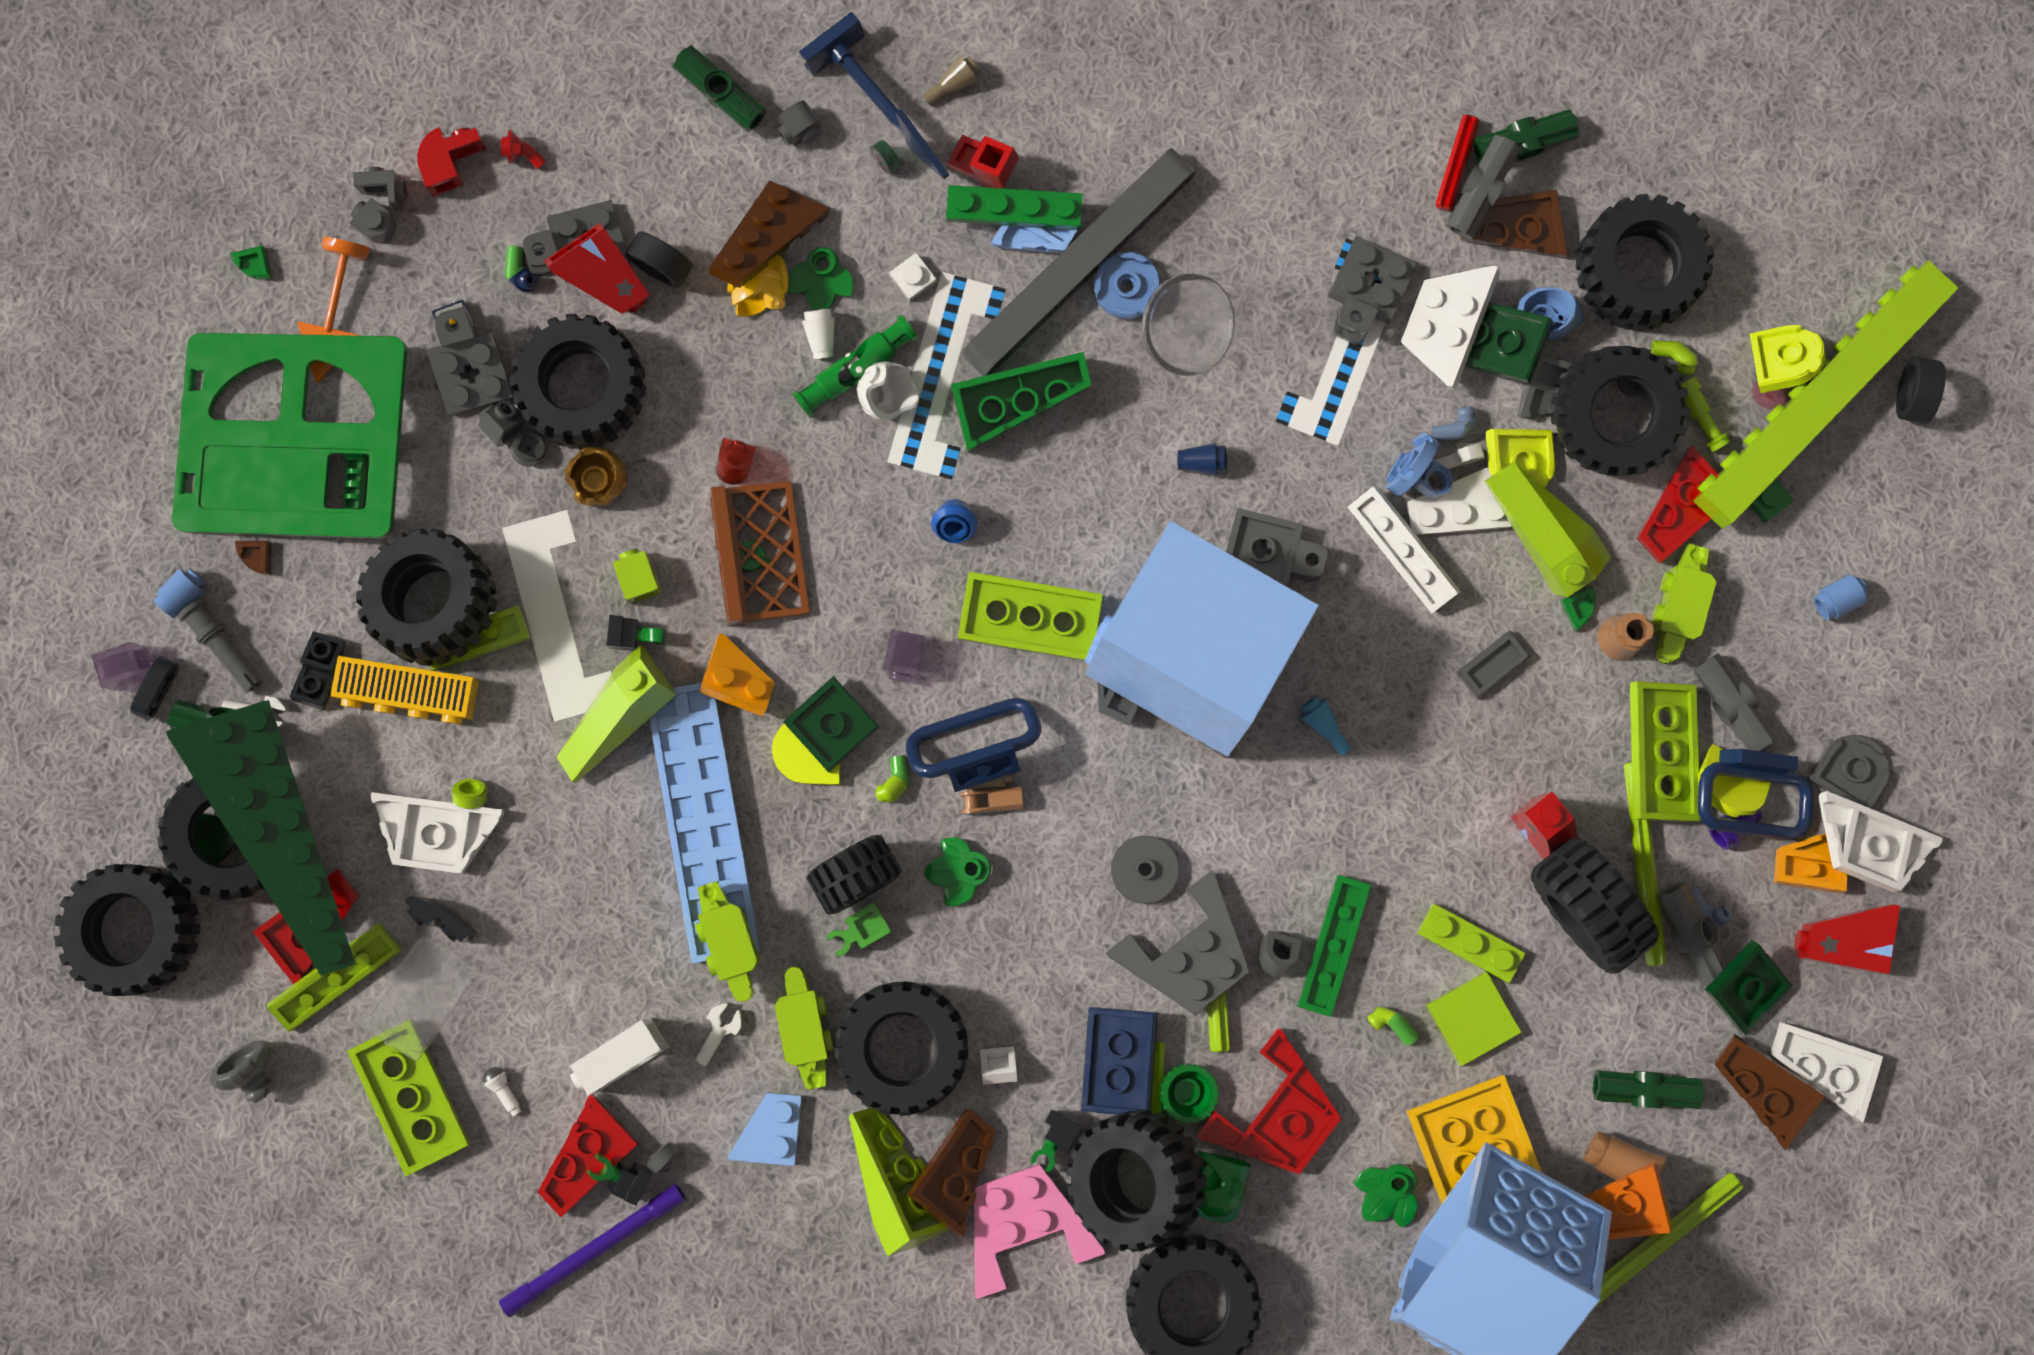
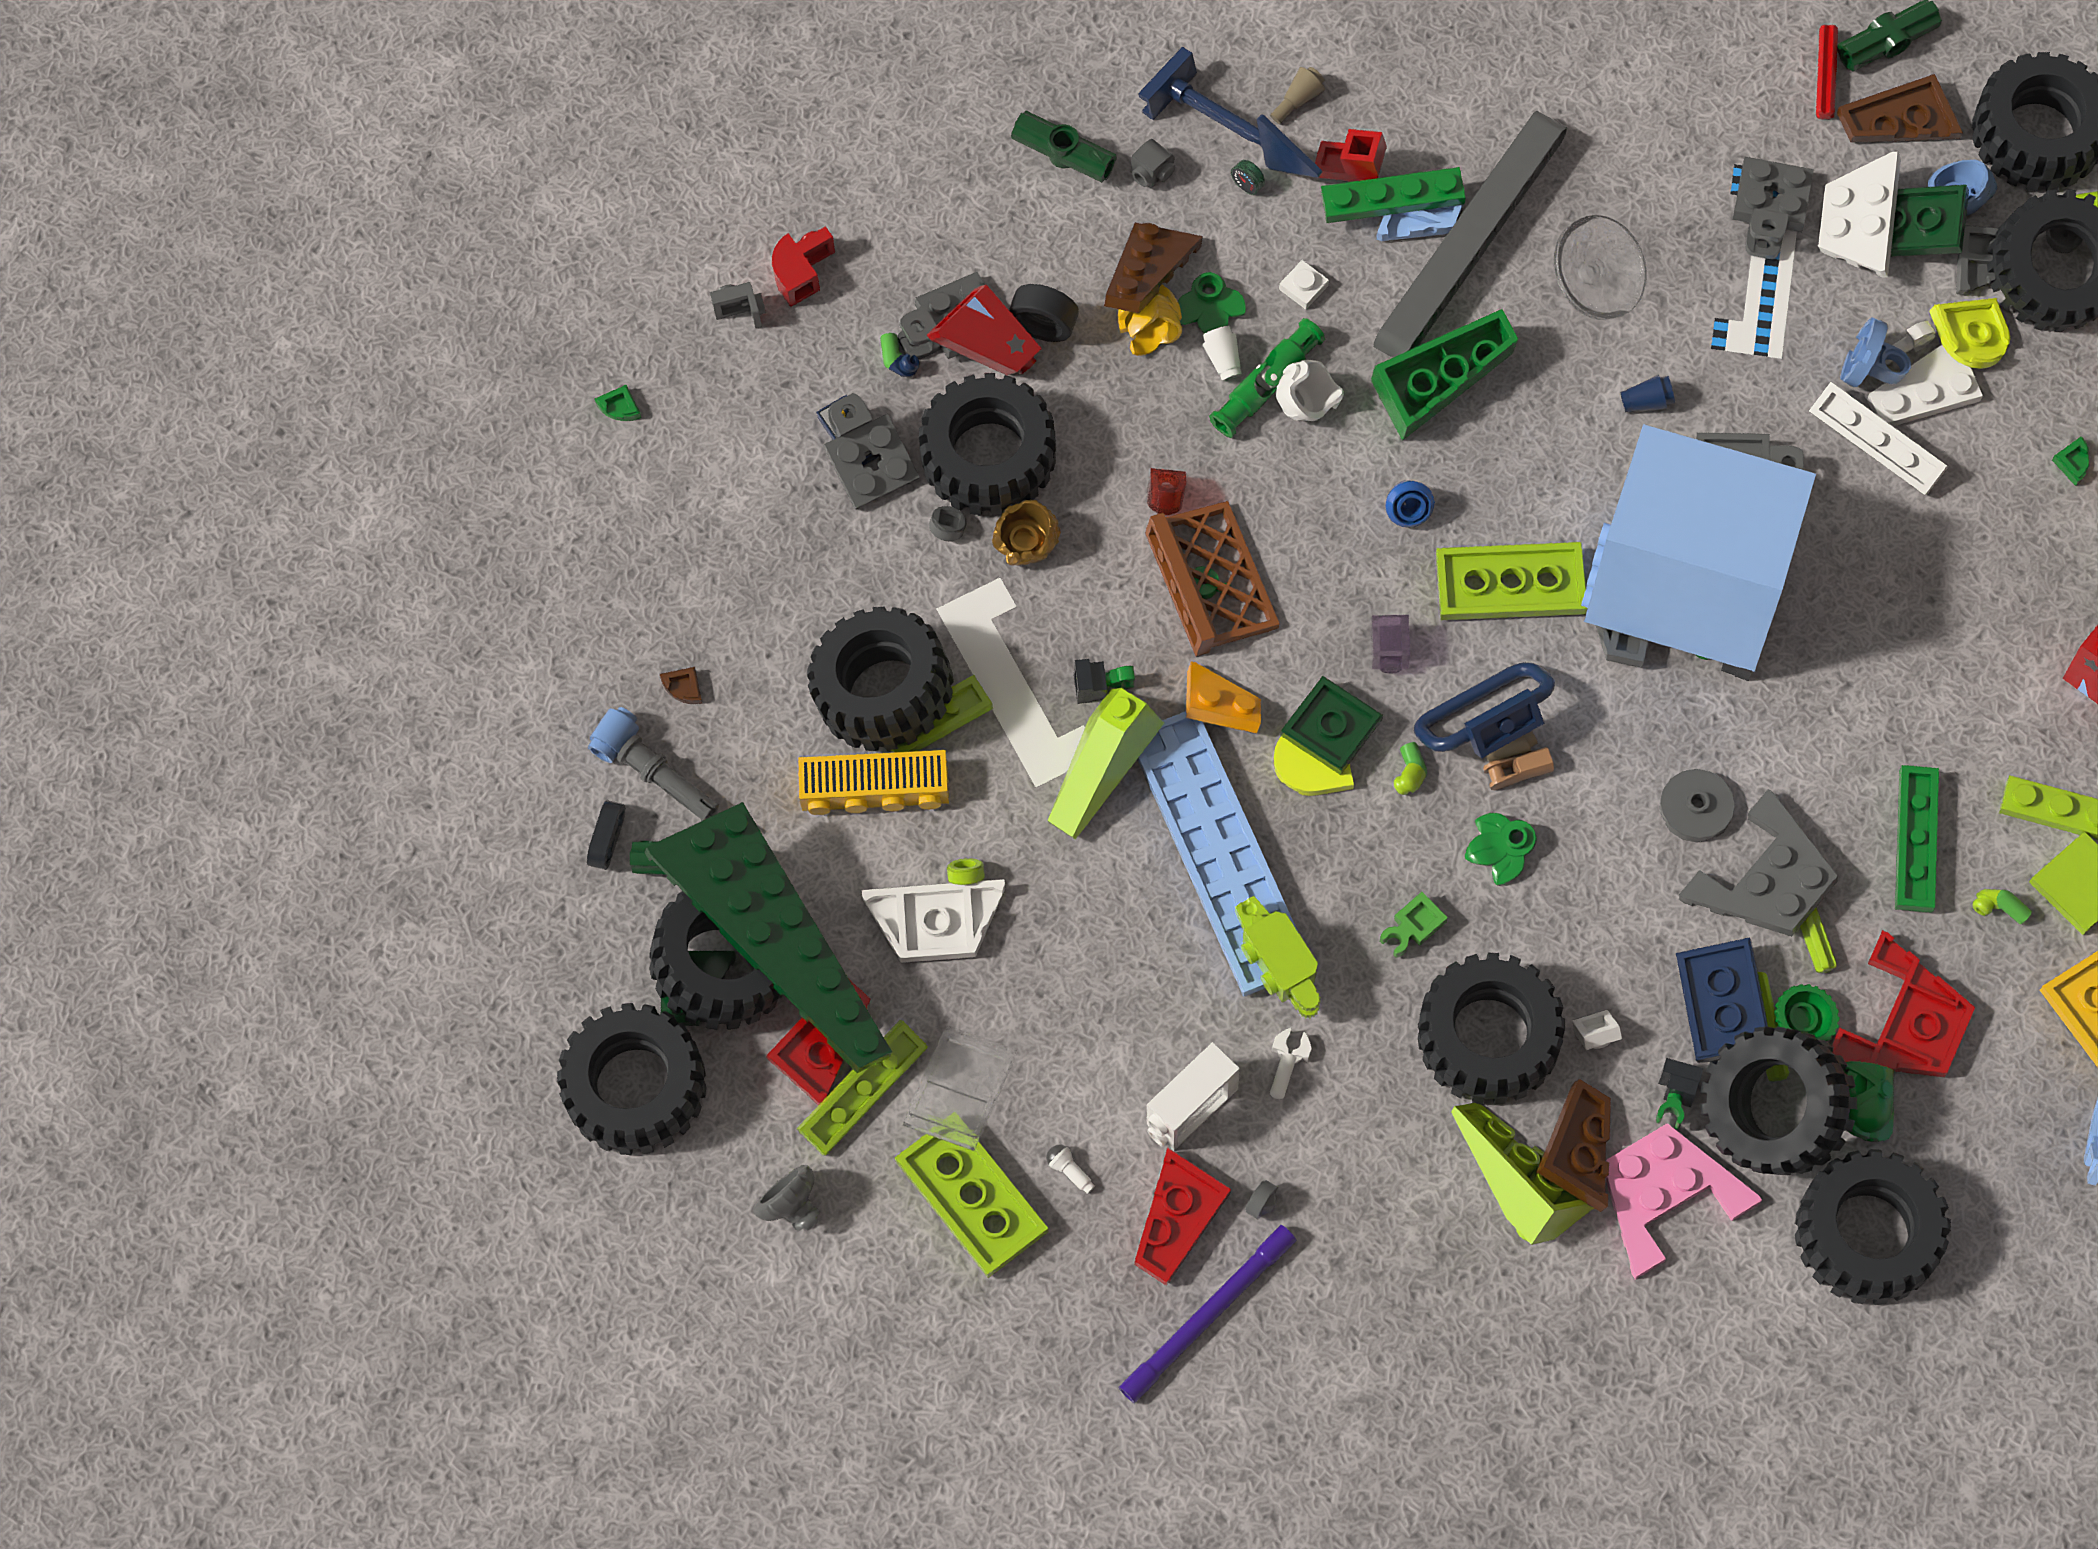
camera: 10 degrees left, 15 degrees down
(121, 665) = (567, 818): clear purple brick -> none
(276, 472) = (694, 596): green door -> none
(317, 671) = (775, 785): black slope -> none
(345, 250) = (713, 467): orange piece -> none
(373, 221) = (736, 339): dark grey plate -> none
(432, 913) = (954, 998): black slope -> none
(501, 422) = (914, 502): dark grey plate -> none
(514, 147) = (865, 241): red plate -> none
(623, 1181) = (1227, 1230): black piece -> none
(636, 576) = (1092, 622): lime brick -> none
(771, 1132) = (1370, 1151): light blue wing -> none
(802, 1028) = (1378, 1035): lime hinge -> none
(853, 874) = (1396, 860): black tyre -> none
(934, 370) = (1348, 365): white sticker -> none
(1125, 268) = (1520, 233): medium blue plate -> none
(1278, 953) = (1861, 855): dark grey plate -> none
(1321, 719) = (1840, 619): dark azure cone -> none
(1384, 1198) = (2044, 1082): green plate -> none
(1458, 429) = (1902, 315): sand blue arm -> none
(1483, 187) = (1861, 81): dark grey piece -> none
(1493, 664) = (2001, 533): dark grey tile -> none
(1554, 536) = (2031, 398): lime wedge -> none

